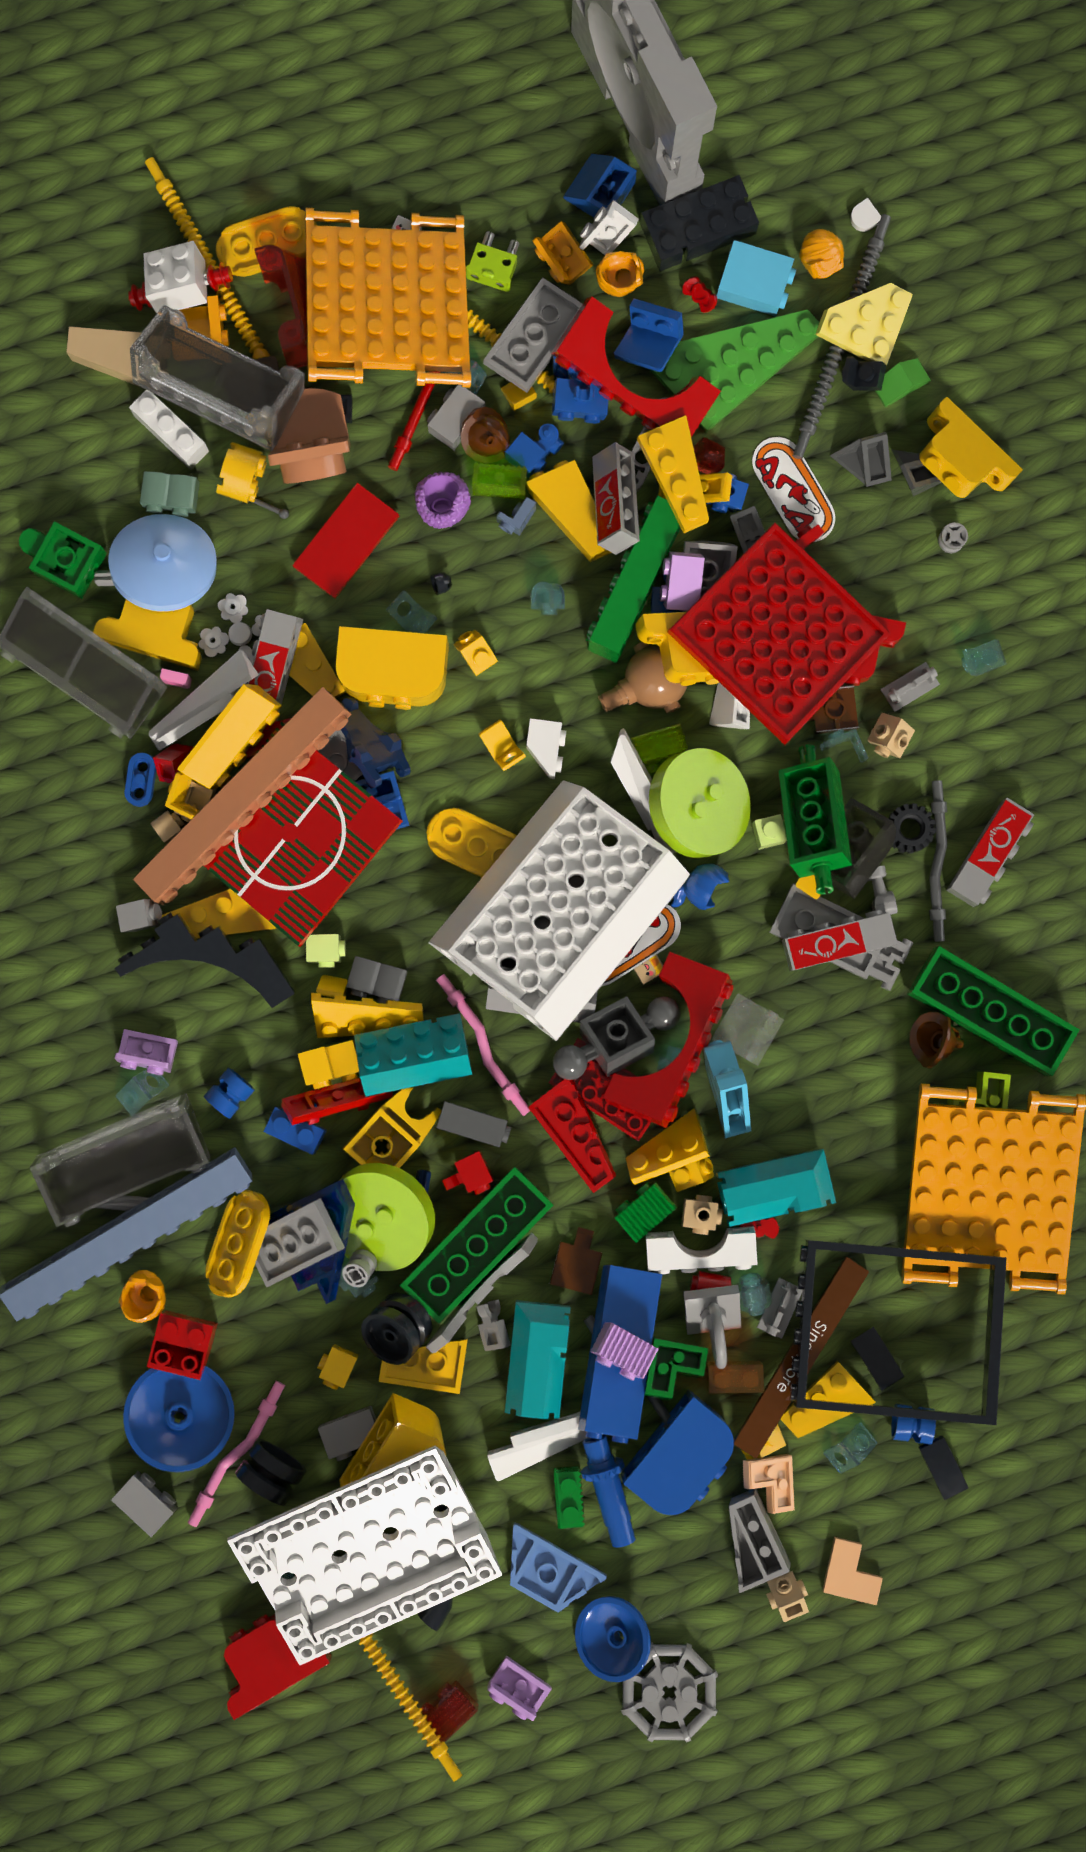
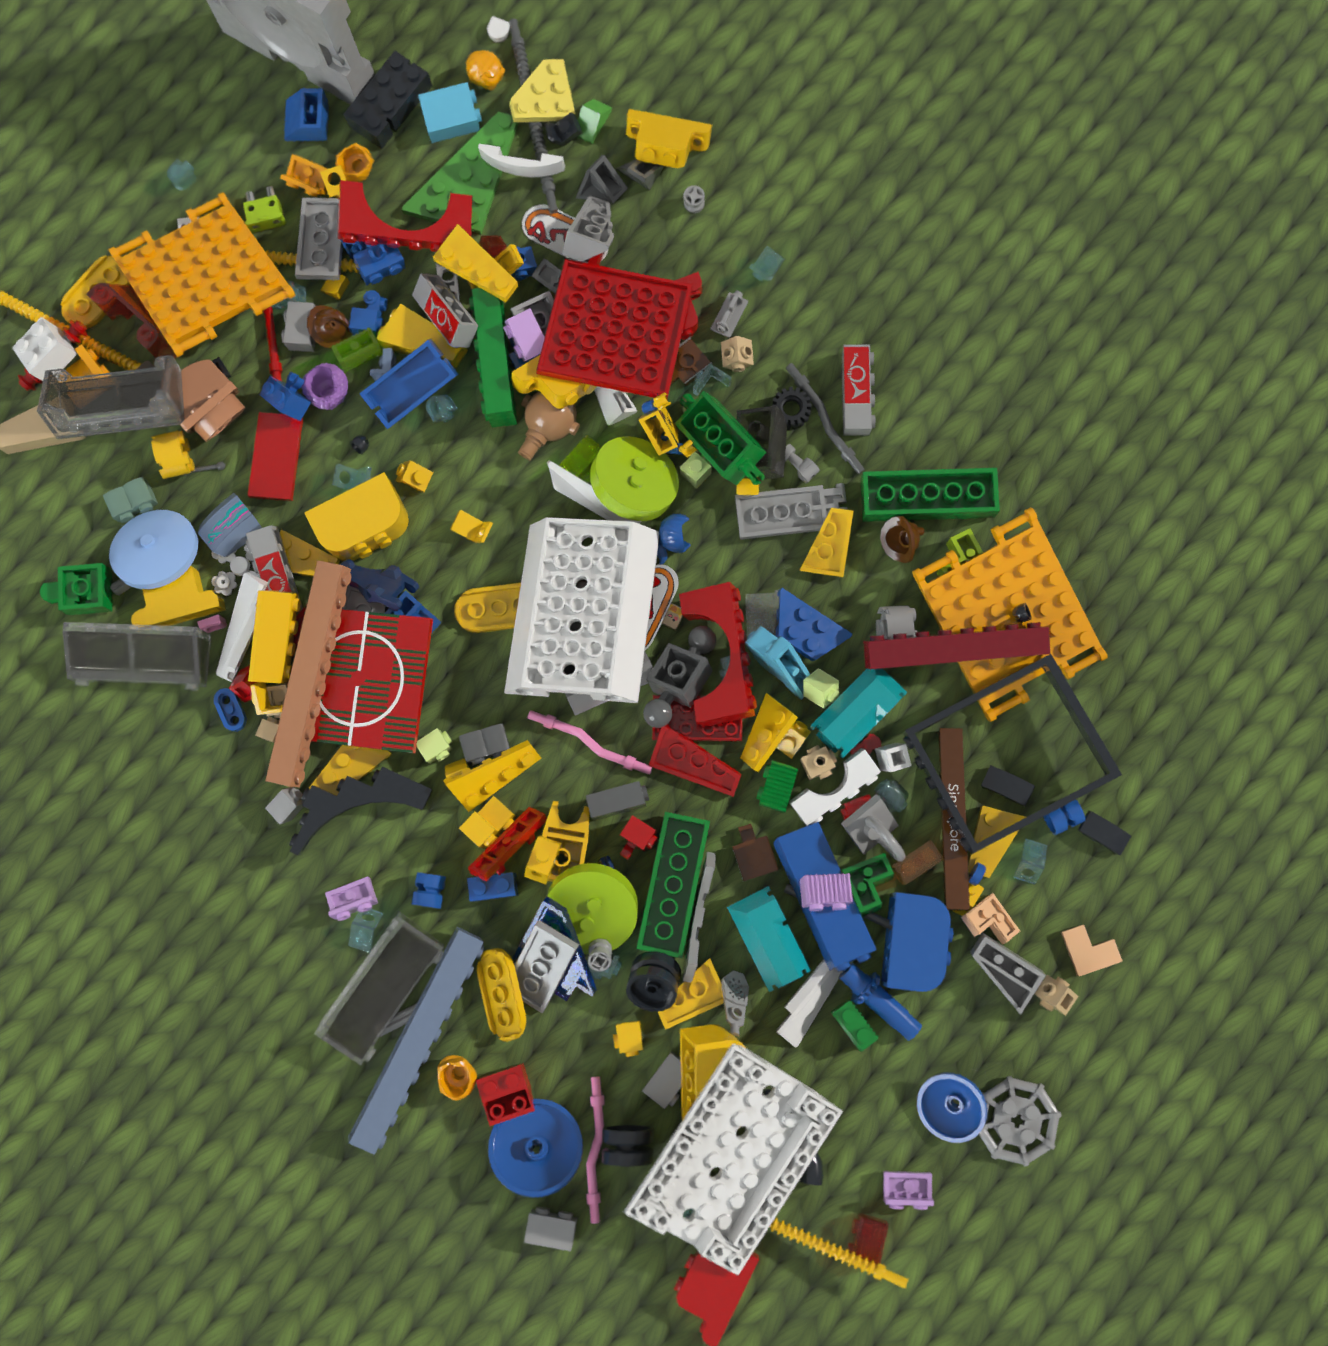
camera: 20 degrees left, 5 degrees down
(169, 429) = (103, 456): white brick -> none
(253, 586) = (227, 526): none -> sand blue slope
(362, 1138) = (542, 859): none -> yellow torso
(394, 486) = (285, 396): none -> blue brick
(412, 1055) = (543, 779): teal piece -> none
(431, 168) = (181, 174): none -> clear light blue plate
(466, 1397) = (735, 998): none -> light grey piece
(492, 1331) = (724, 939): light grey plate -> none
(530, 554) = (409, 383): none -> blue piece
(544, 744) = (500, 507): white slope -> none
(549, 1571) = (874, 1088): medium blue wing -> none
(585, 292) = (332, 190): none -> yellow bracket
(609, 228) = (328, 137): white bracket -> none
(651, 337) = (402, 190): blue bracket -> none
(700, 294) = (418, 145): red piece -> none
(752, 1141) = (821, 688): none -> yellowish green brick
(761, 770) = (661, 428): none -> torso
(777, 1070) = (807, 628): none -> blue wing
(779, 1257) = (893, 757): none -> white brick
(779, 1313) = (918, 797): light grey hinge -> none
(787, 1427) = (976, 874): none -> blue tile
(822, 406) = (547, 166): none -> white slope
(822, 509) = (590, 231): none -> light grey wedge
(839, 941) = (792, 512): brick -> none
(857, 999) = (831, 545): none -> yellow wing
(868, 1128) = (896, 620): none -> light grey brick
(915, 1189) = (956, 647): none -> dark red brick
(1005, 1197) = (1022, 613): none -> black hinge

